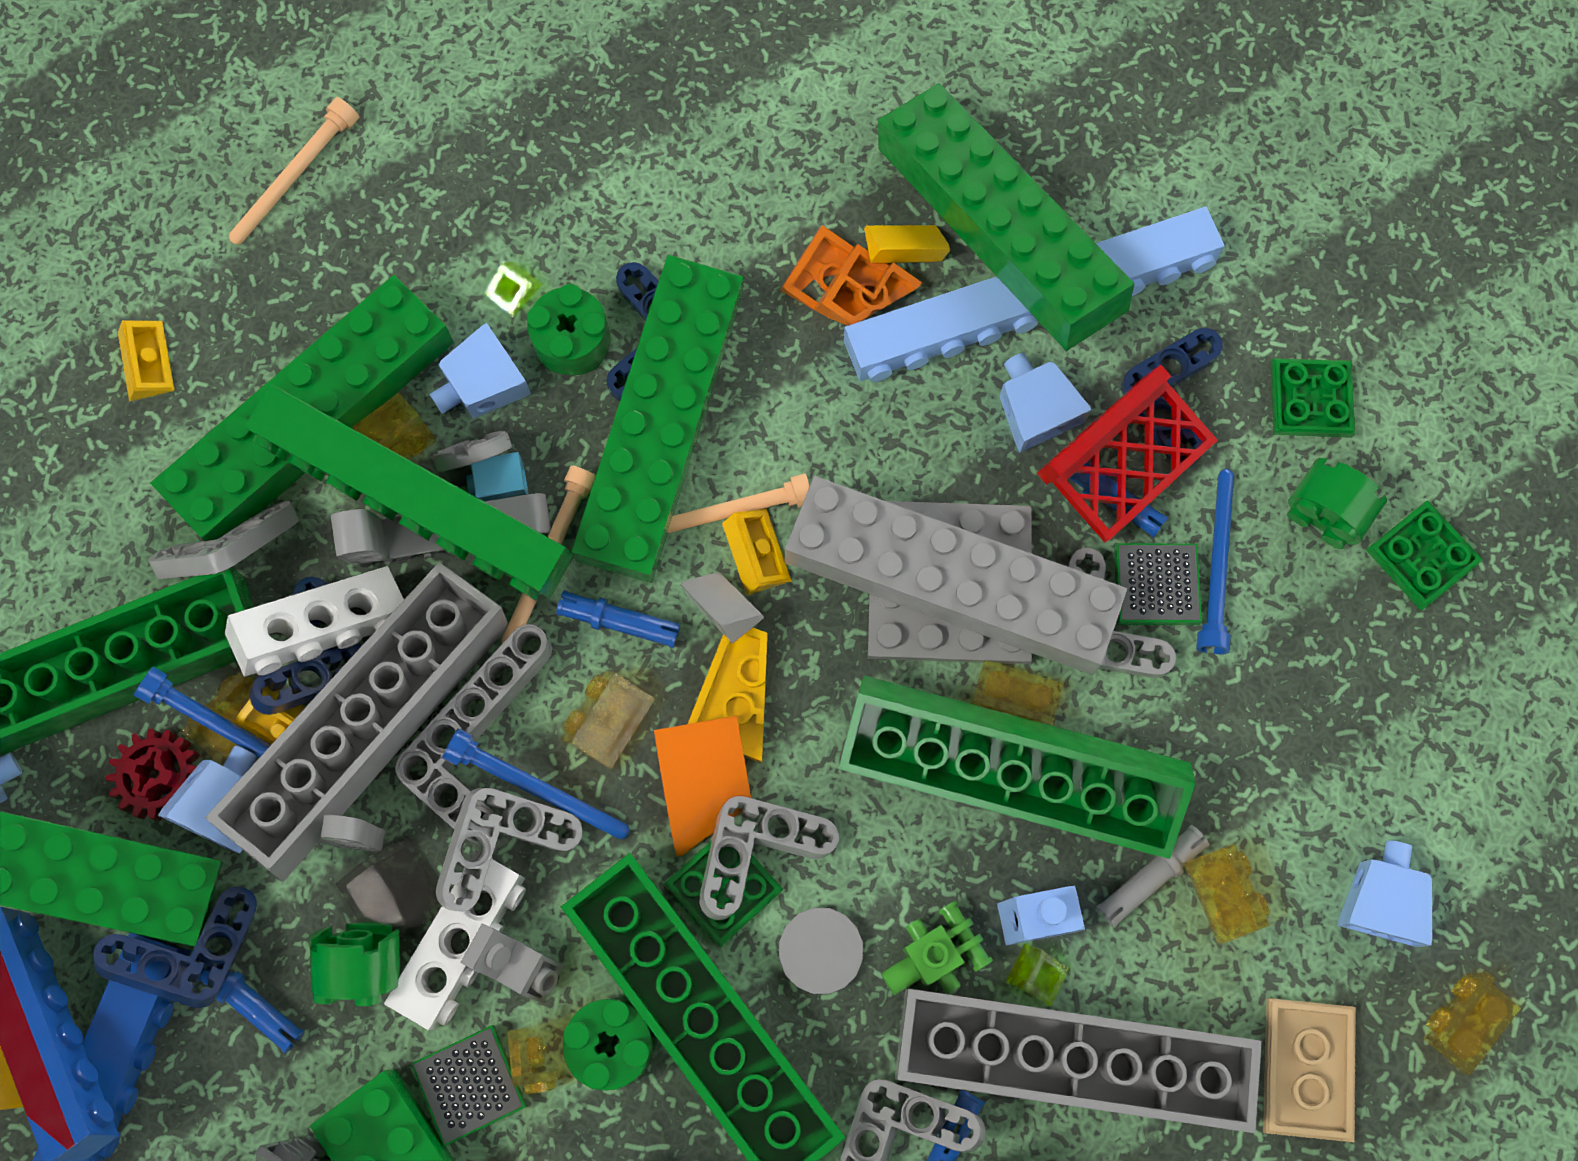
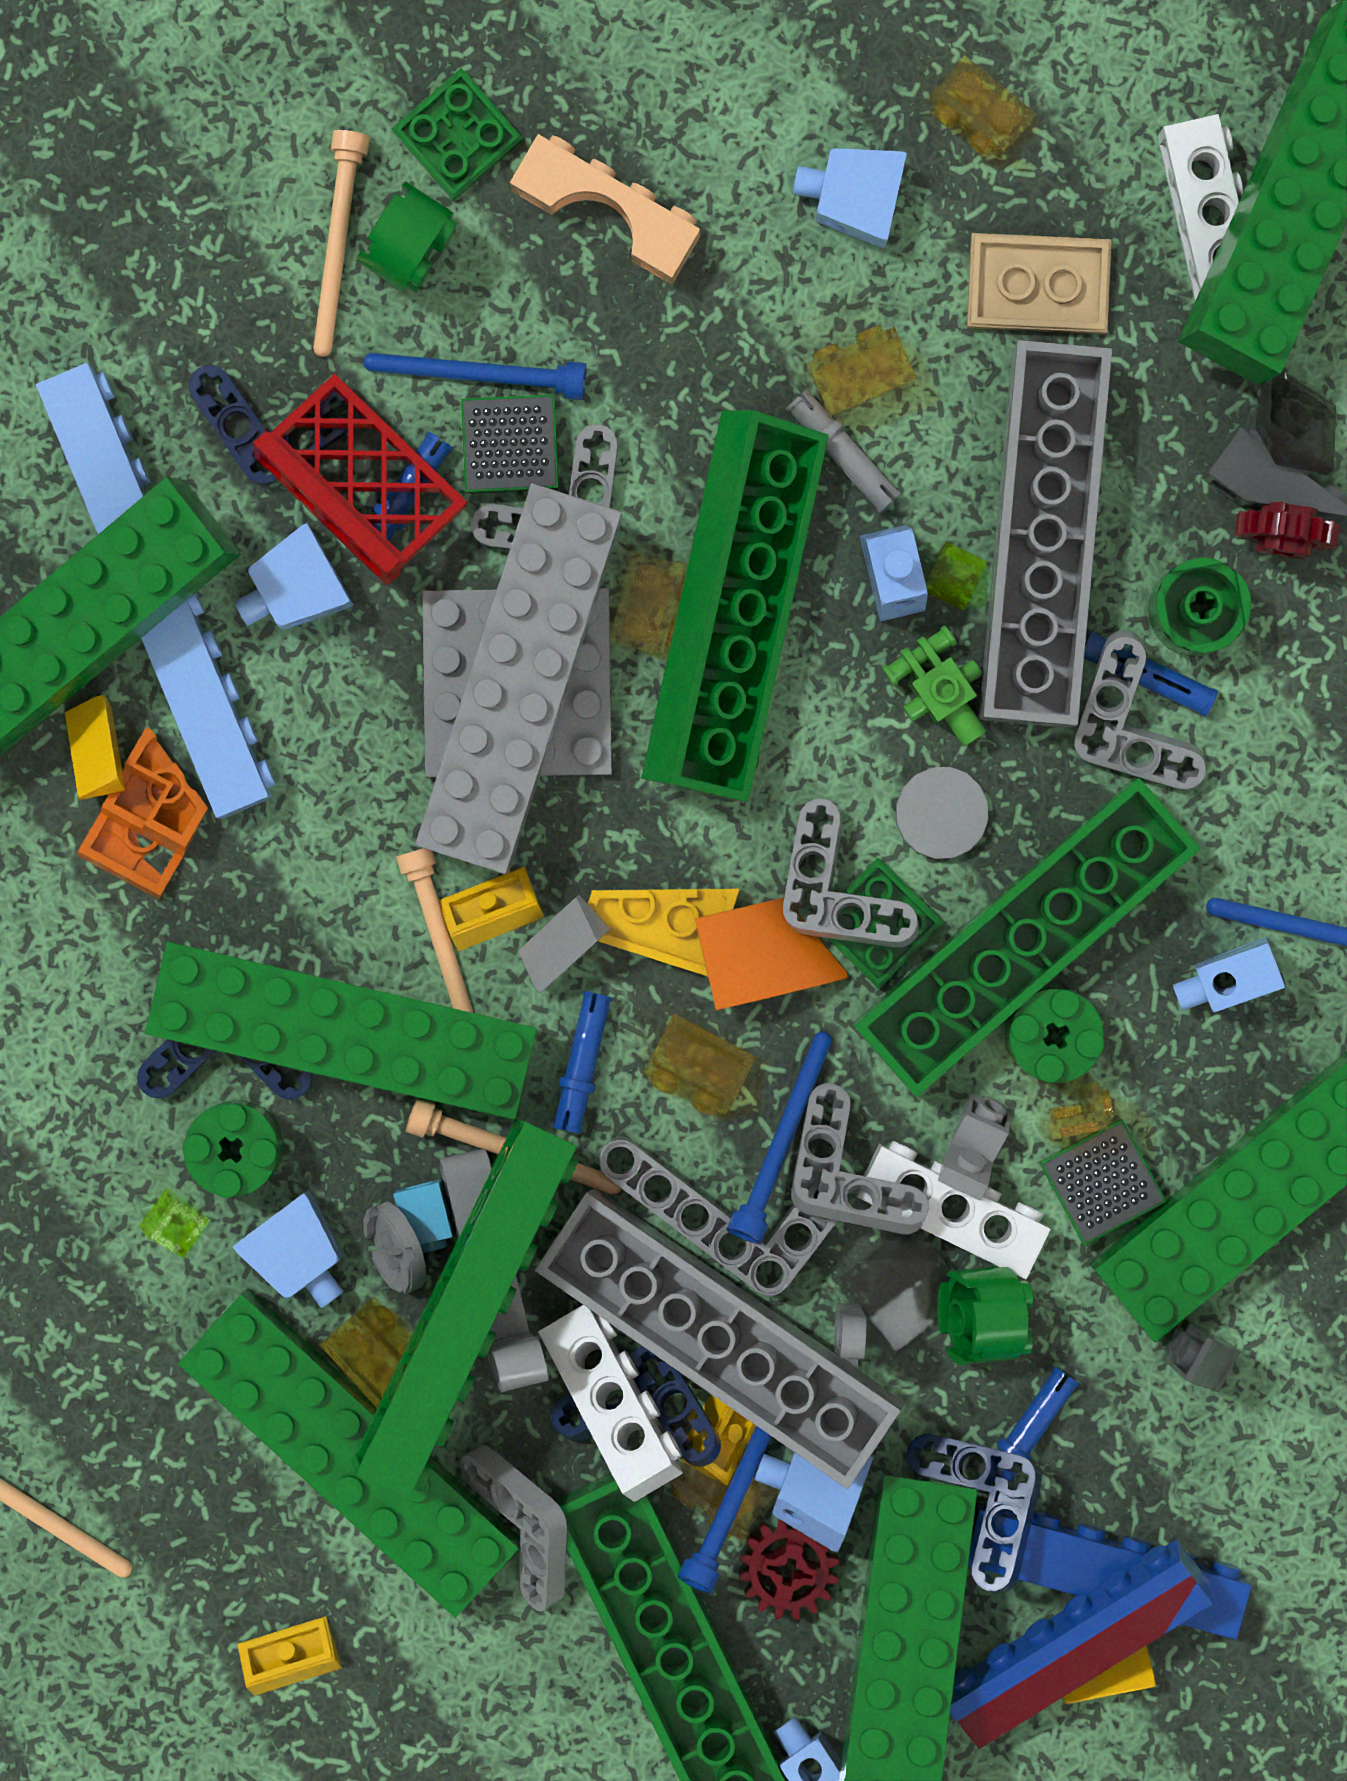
camera: 90 degrees left, 15 degrees up
(1312, 397) = (268, 258): green tile -> none
(1390, 633) = (556, 177): none -> light nougat arch
(1407, 464) = (349, 151): none -> light nougat piece

